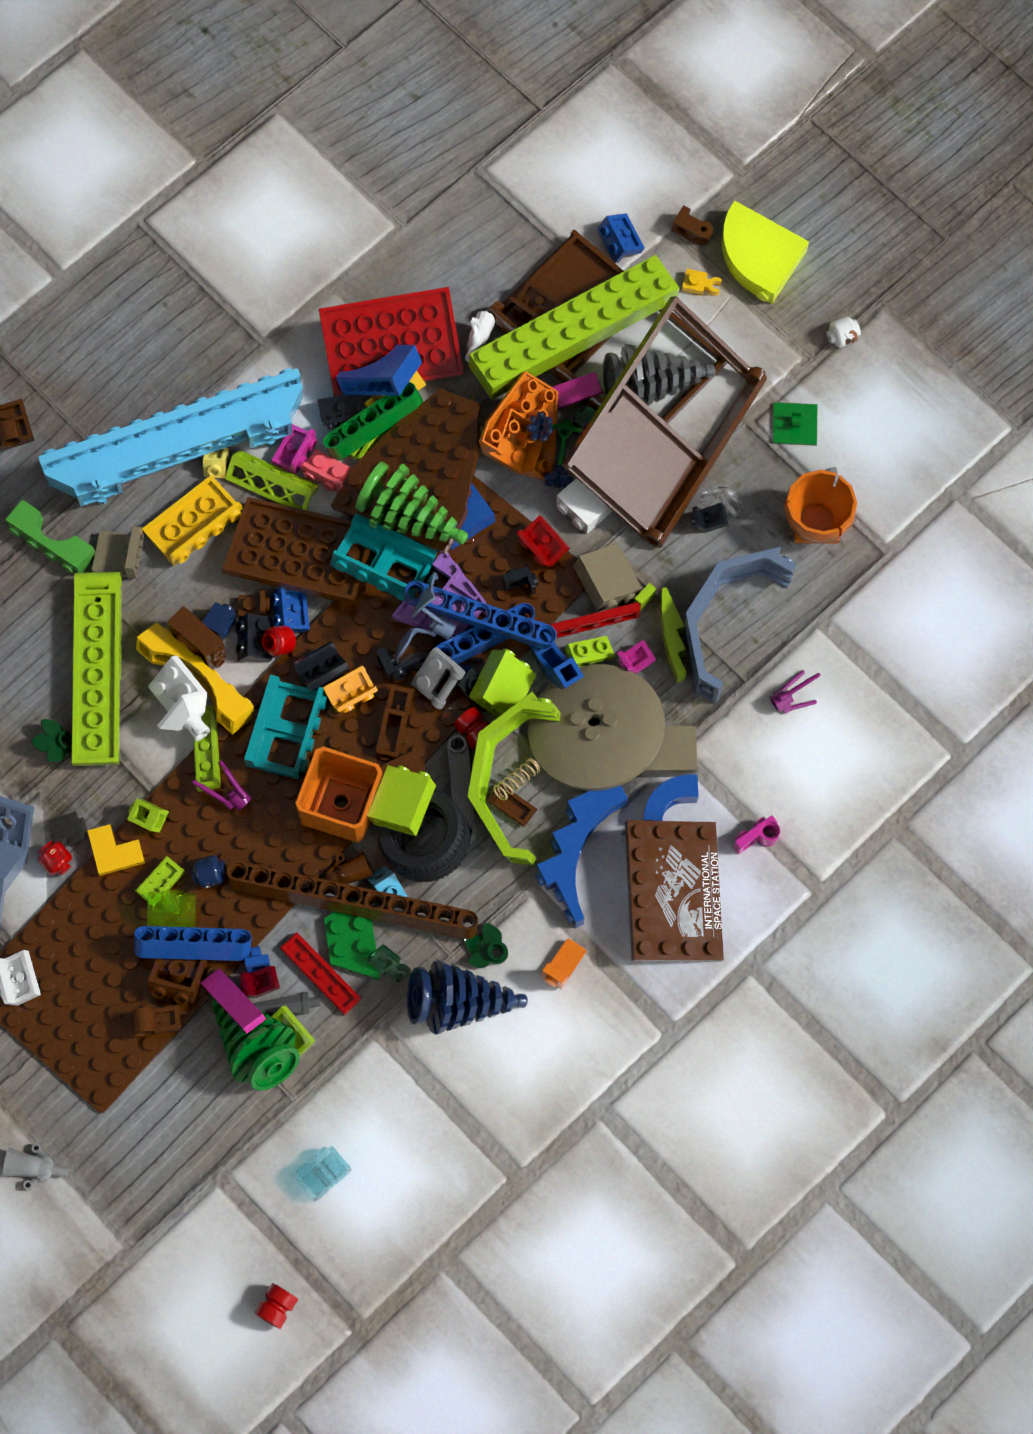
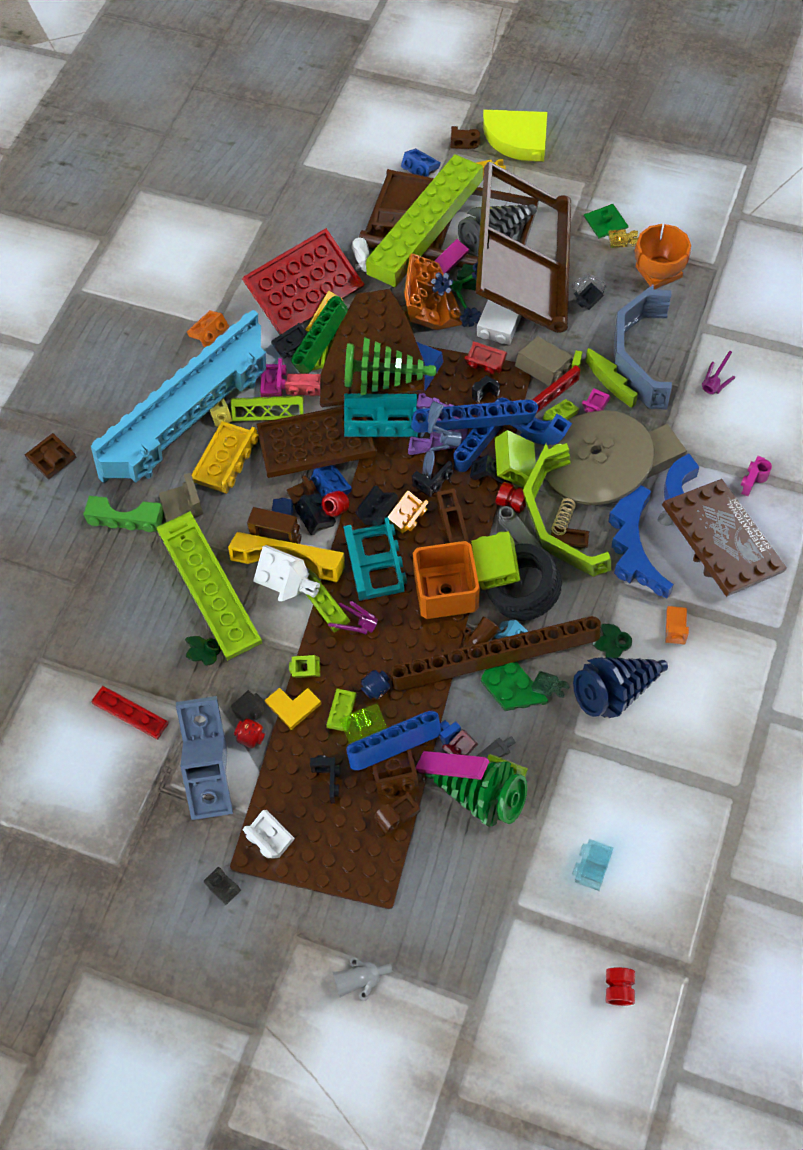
camera: 20 degrees left, 10 degrees down
(109, 930) = (323, 764): none -> black bracket
(257, 345) = (208, 328): none -> orange bracket
(320, 974) = (501, 720): red tile -> none
(383, 377) = (314, 300): blue arch -> none
(431, 675) = (461, 473): light grey plate -> none
(794, 458) = (620, 238): none -> clear yellow plate
(843, 332) = (602, 154): white head -> none

